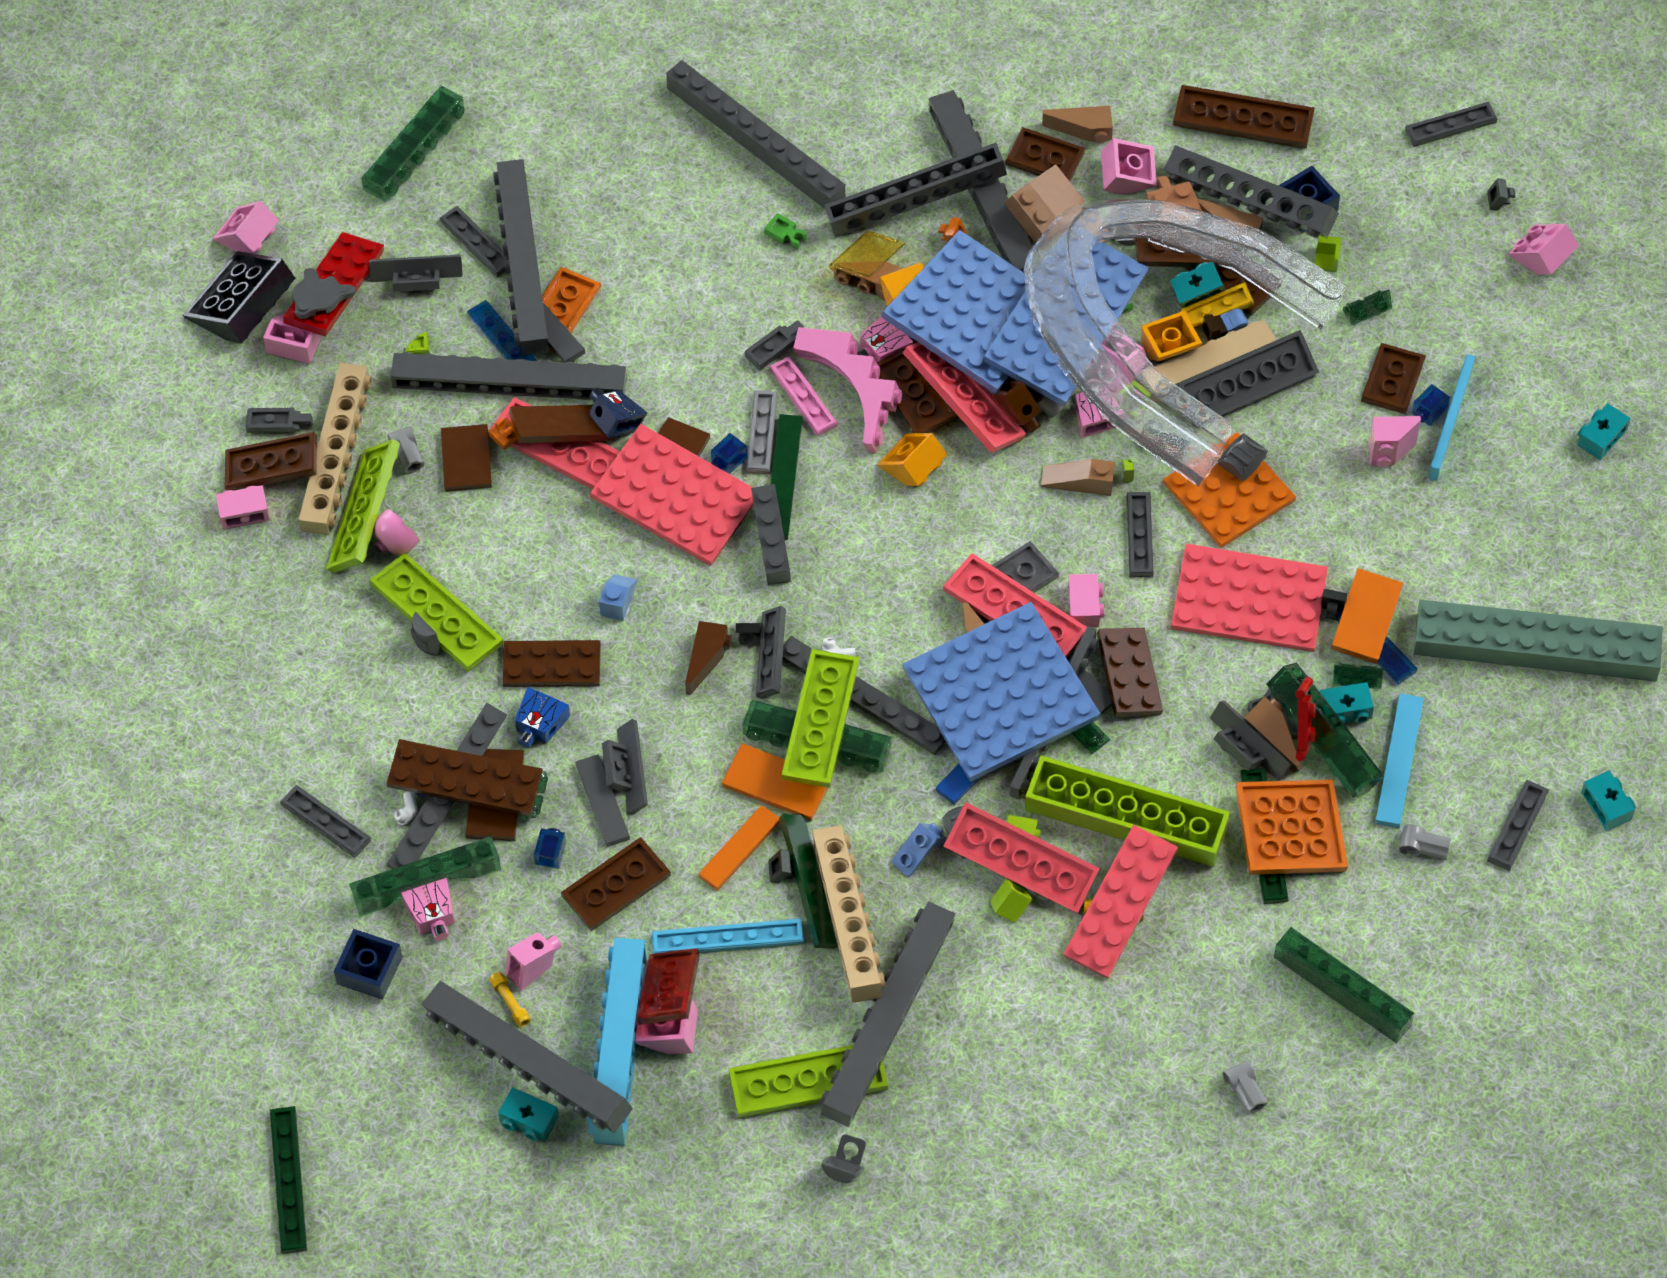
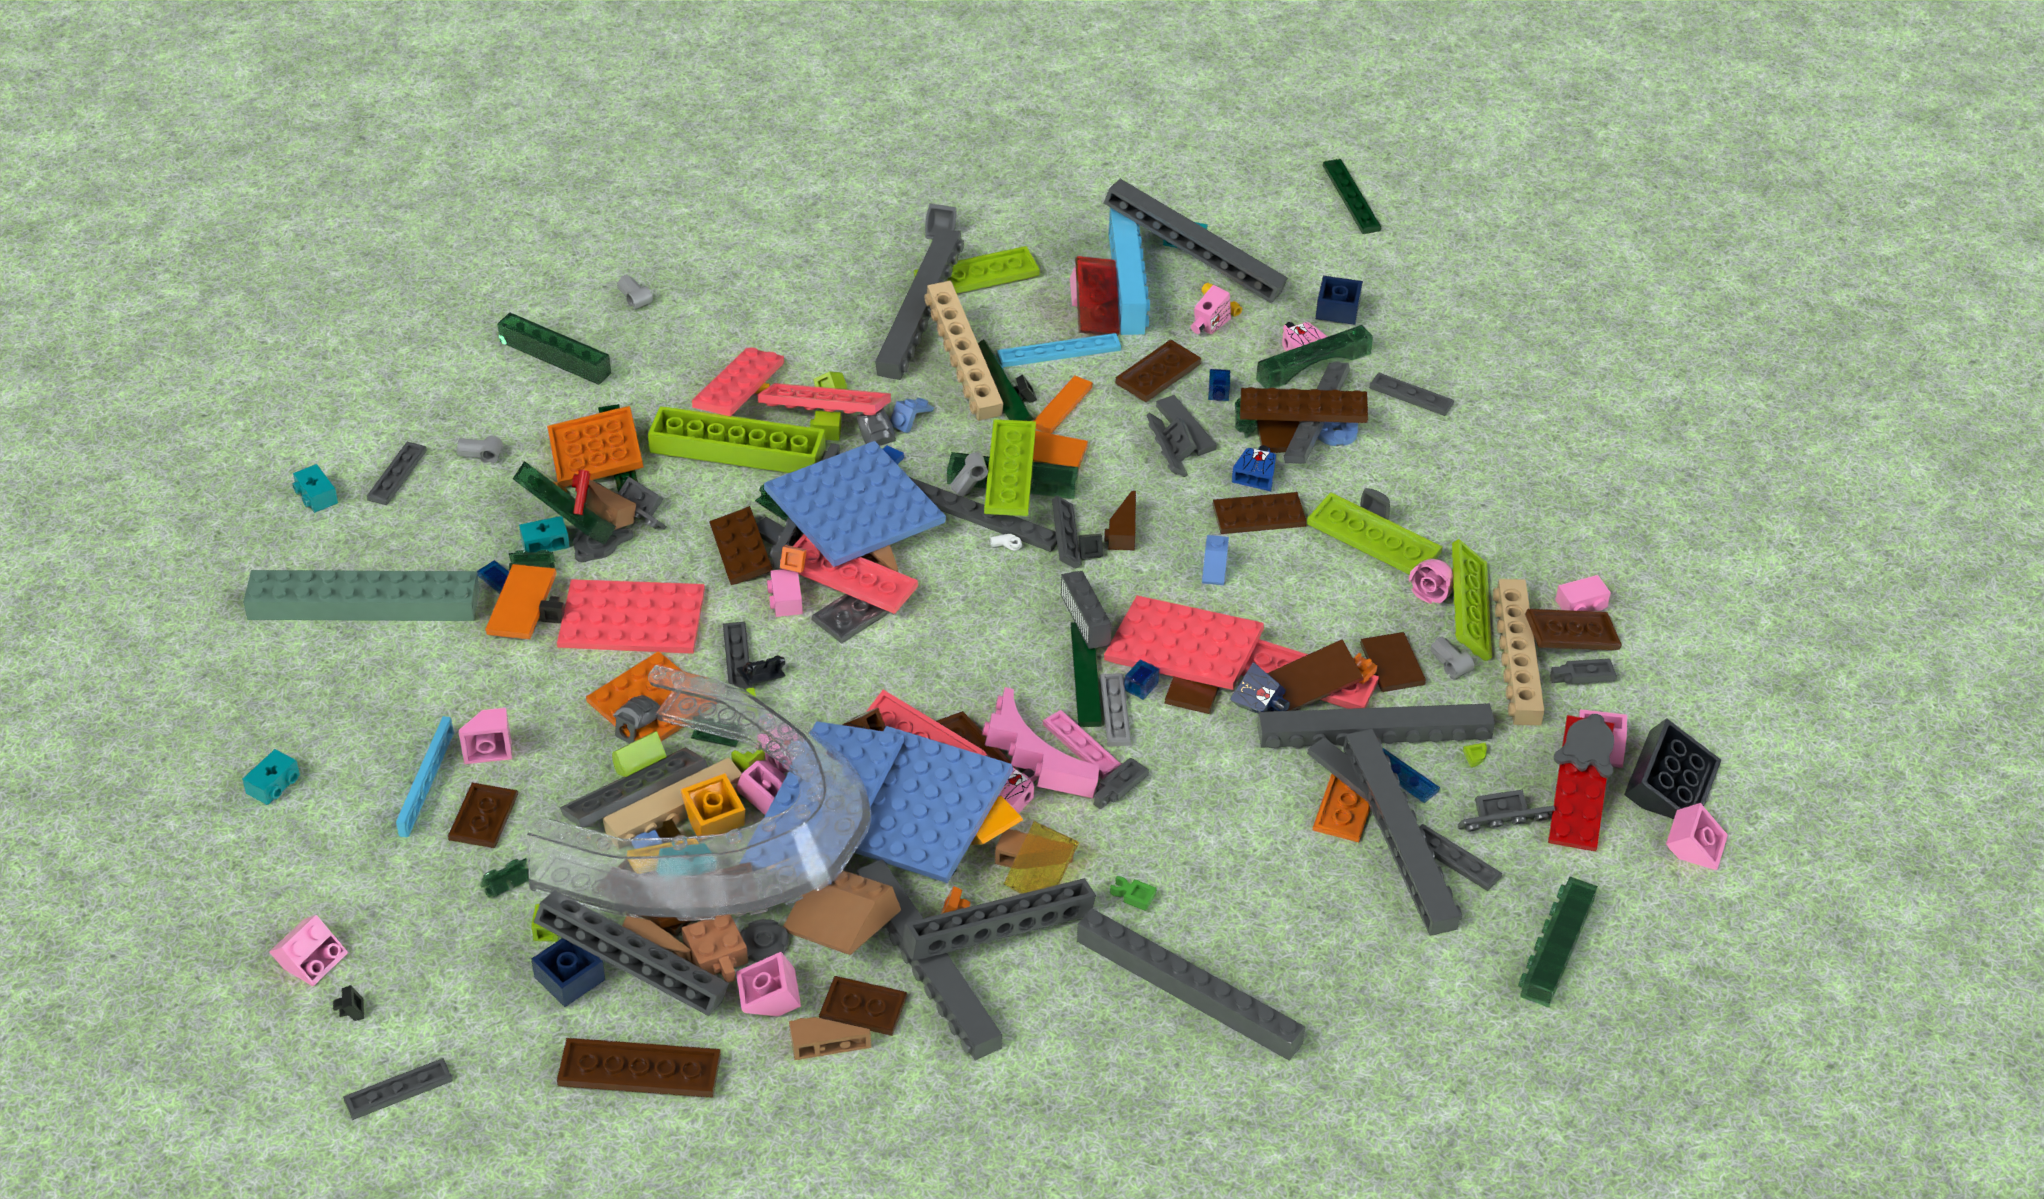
camera: 170 degrees right, 15 degrees down
(865, 718) = (971, 473): none -> light grey piece
(913, 458) = (964, 690): light orange slope -> none
(1075, 612) = (793, 558): none -> orange tile
(1081, 476) = (791, 690): medium nougat slope -> none
(1116, 504) = (762, 670): none -> black hinge
(1246, 411) = (638, 754): none -> lime brick
(1399, 760) = (496, 510): medium azure tile -> none
(1431, 404) = (446, 784): clear blue brick -> none

